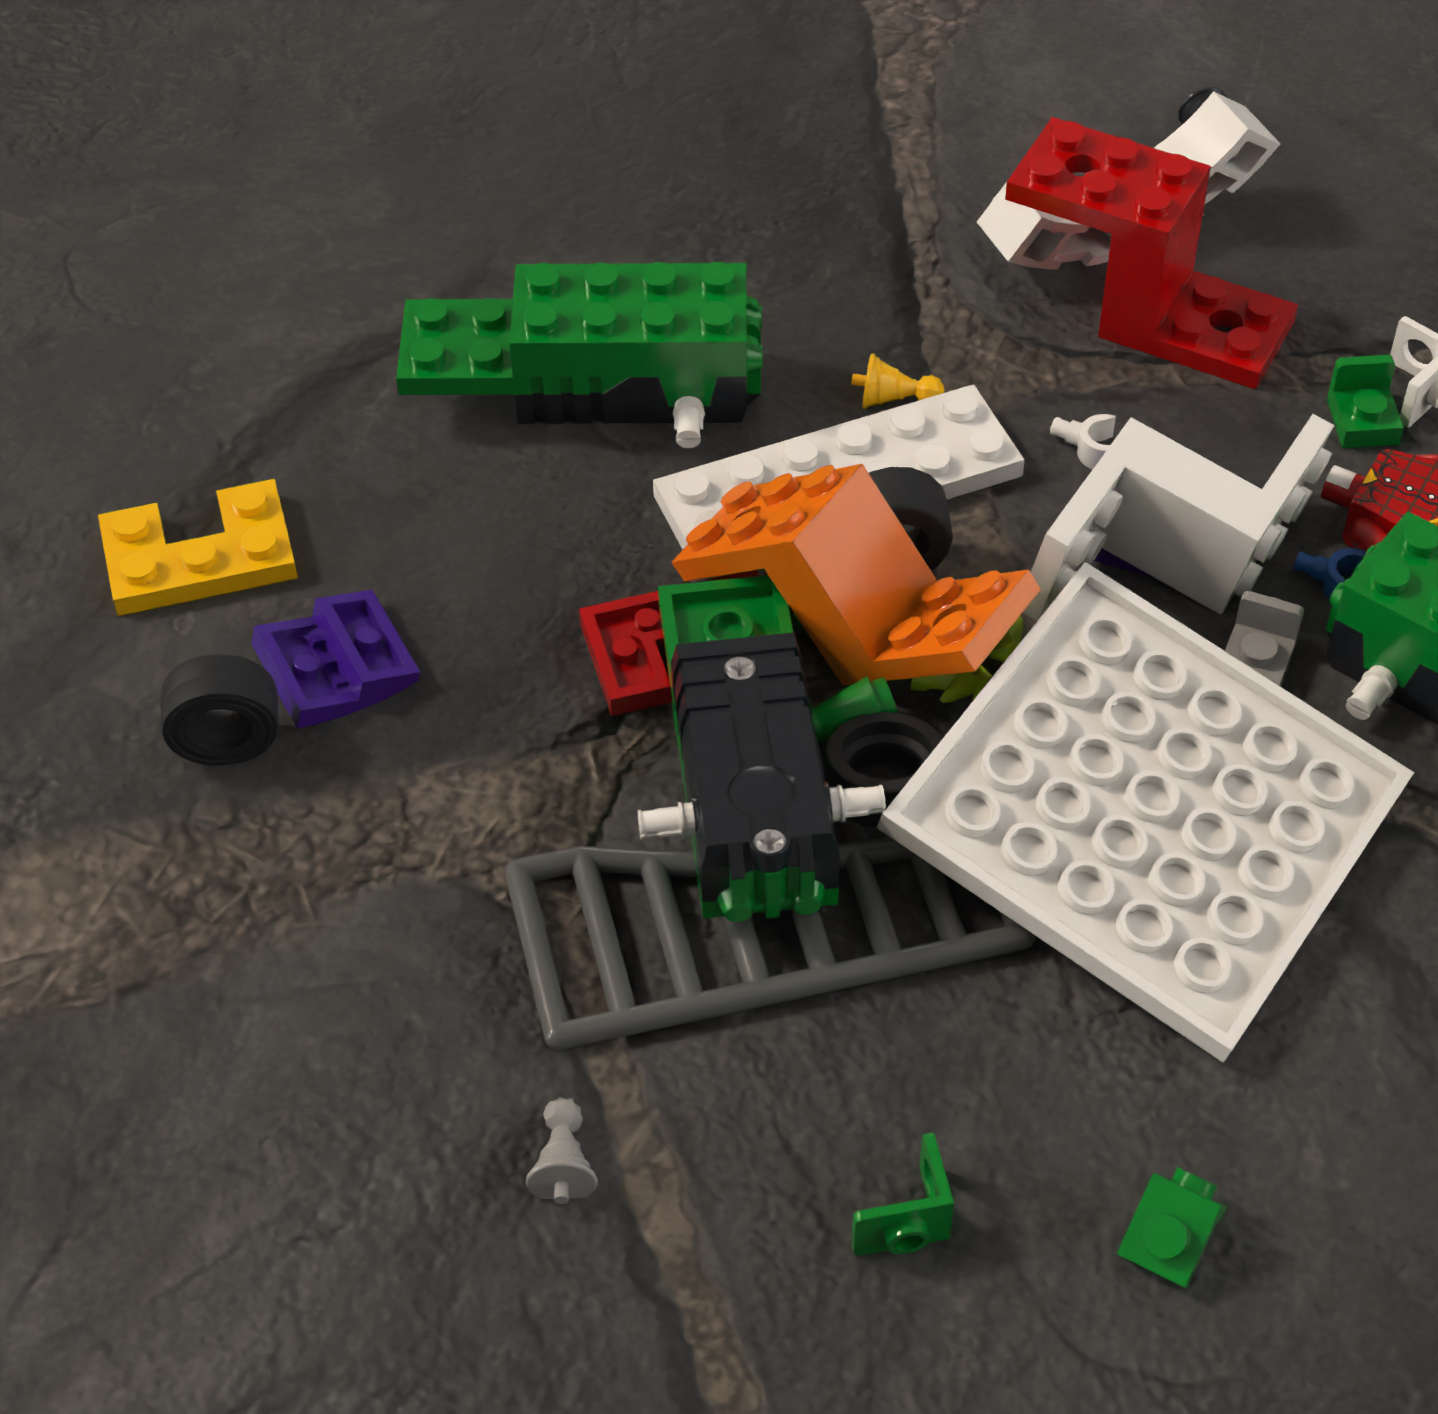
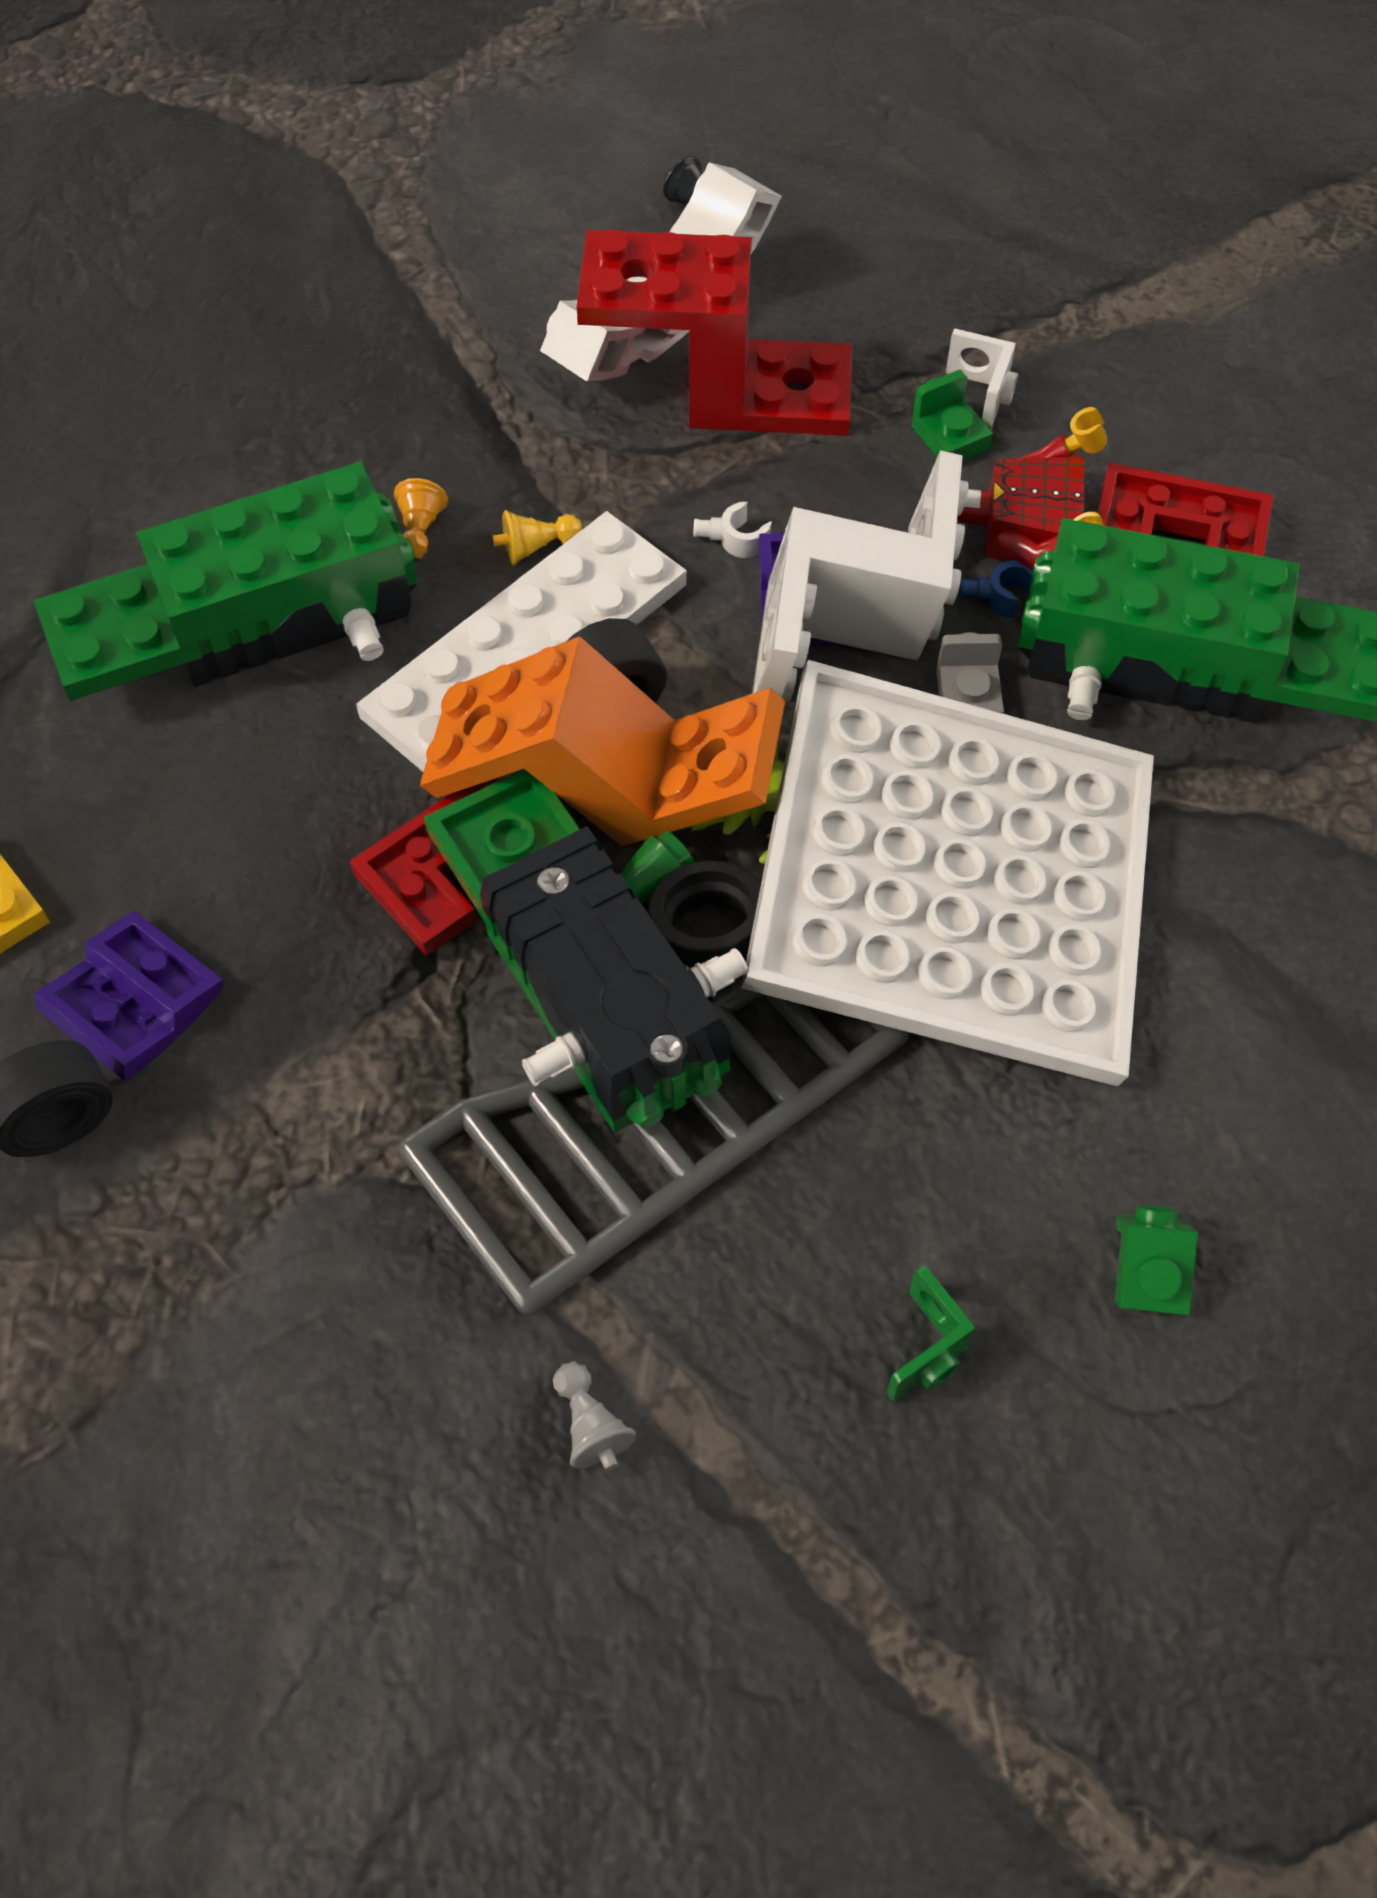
camera: 25 degrees left, 10 degrees up
(797, 328) = (419, 504): none -> light orange piece

